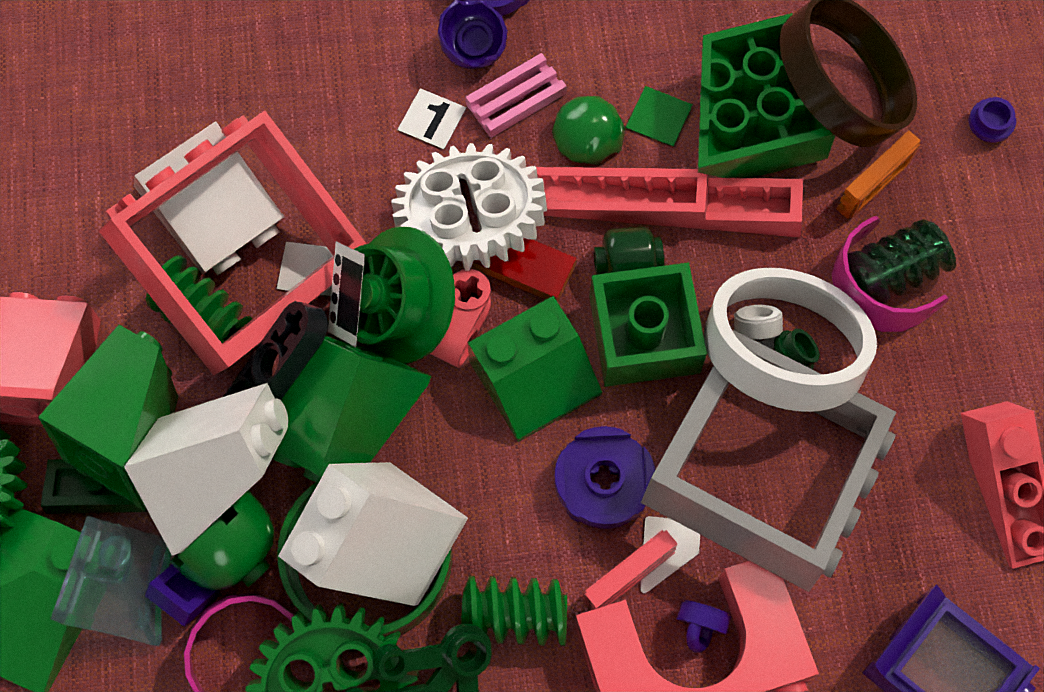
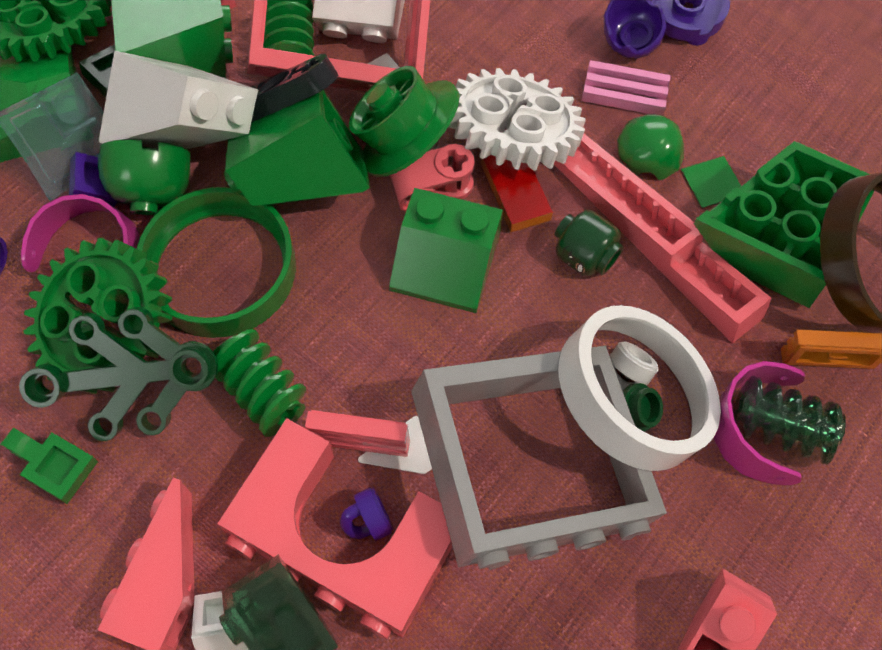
camera: 45 degrees right, 5 degrees down
(346, 293) = (370, 89): black sticker -> none
(372, 533) = (218, 235): white slope -> none
(432, 118) = (556, 59): white sticker -> none
(585, 499) = (411, 335): dark purple plate -> none
(647, 324) = (548, 287): green brick -> none

